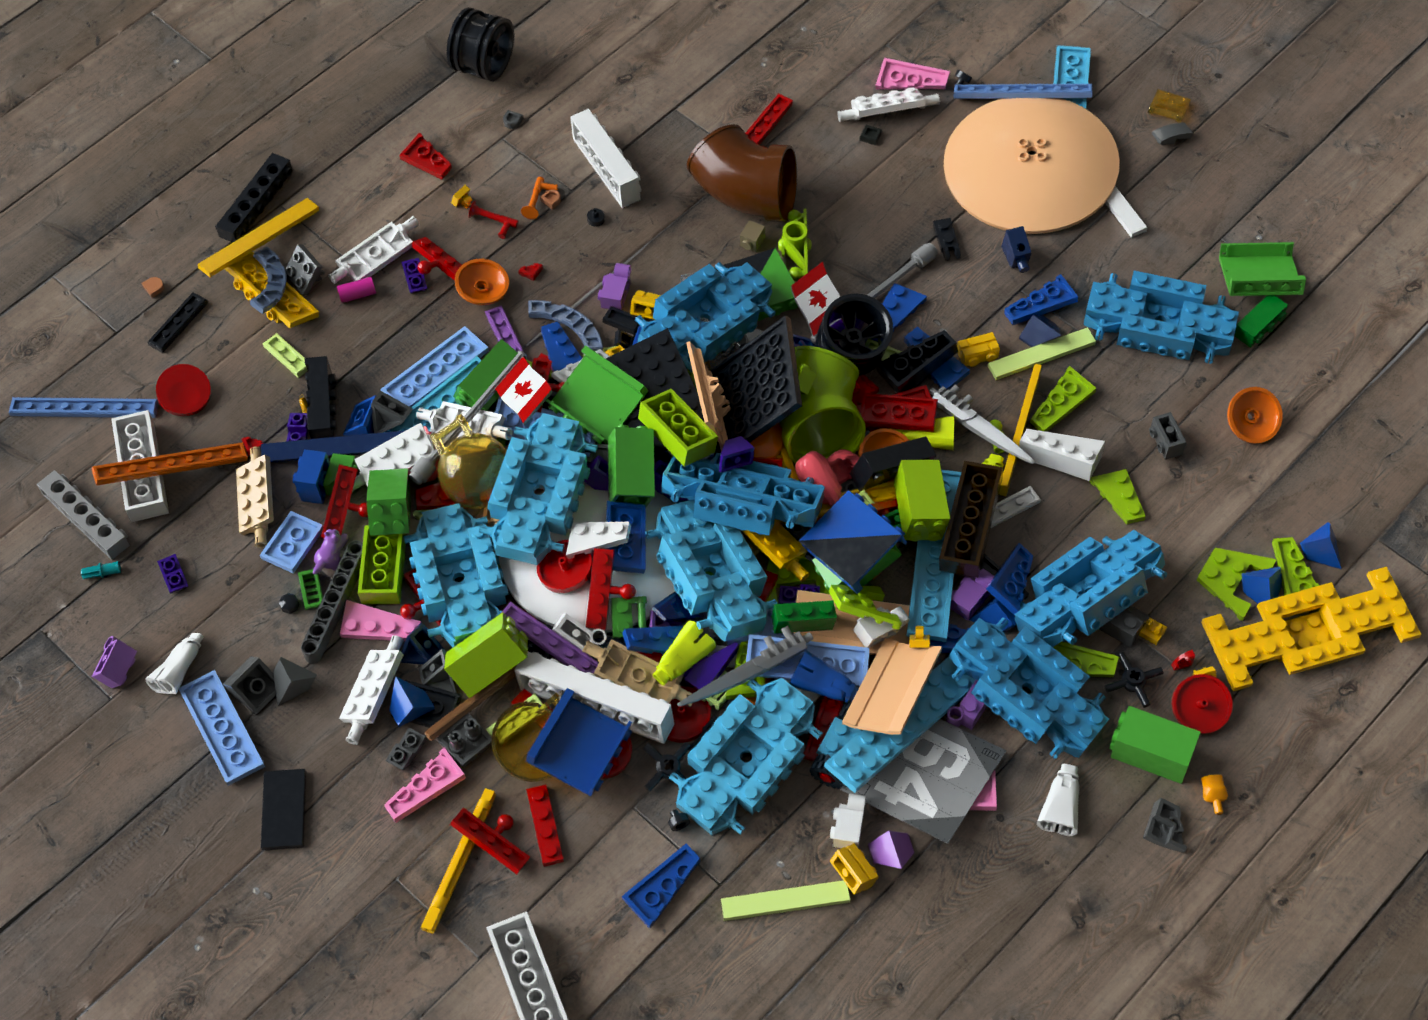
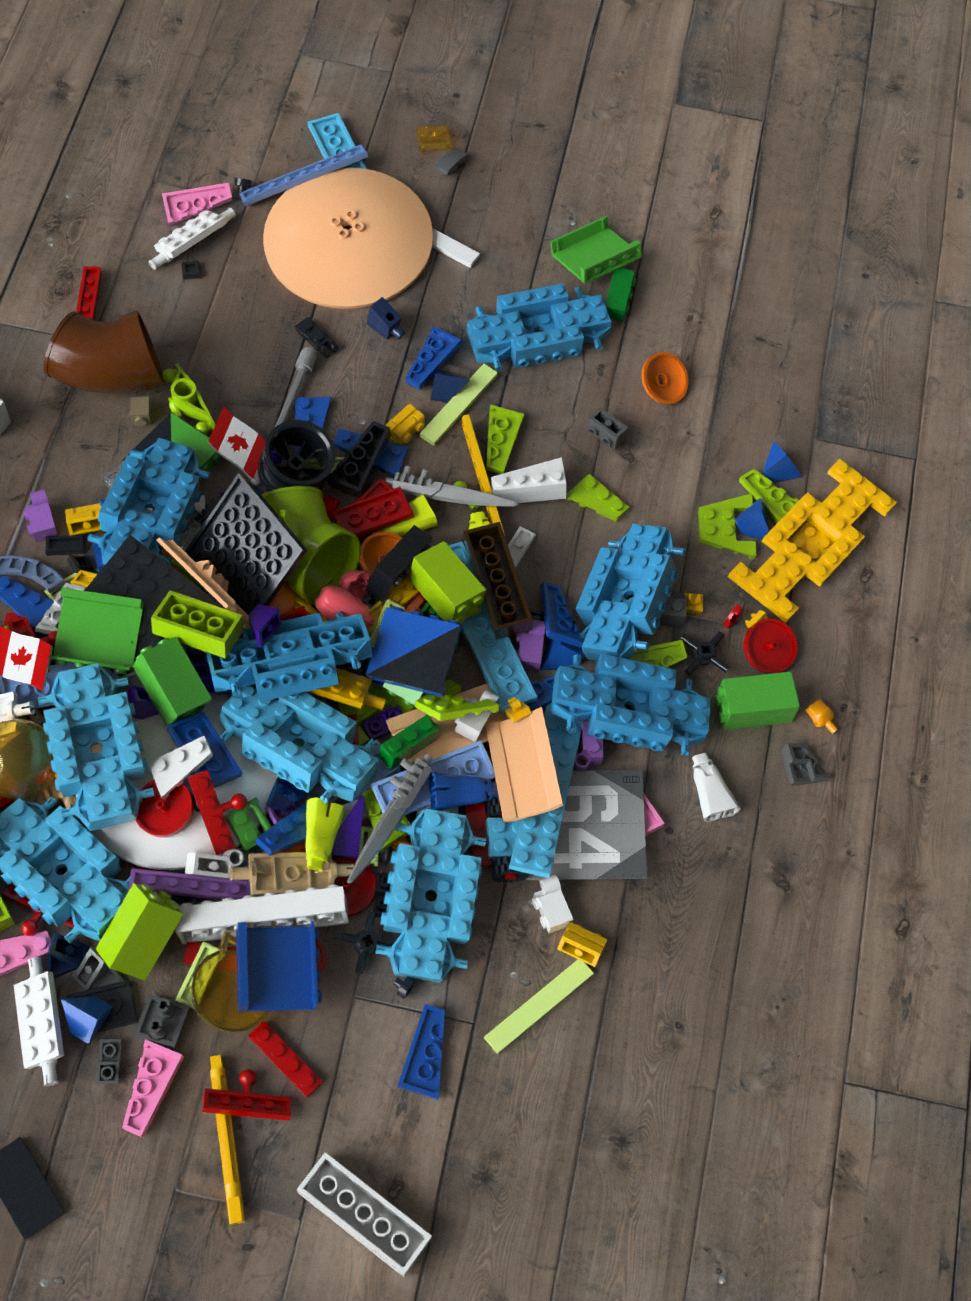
camera: 40 degrees left, 5 degrees up
(468, 705) = (140, 1000): medium nougat axle -> none
(891, 849) = (601, 910): medium lavender slope -> none

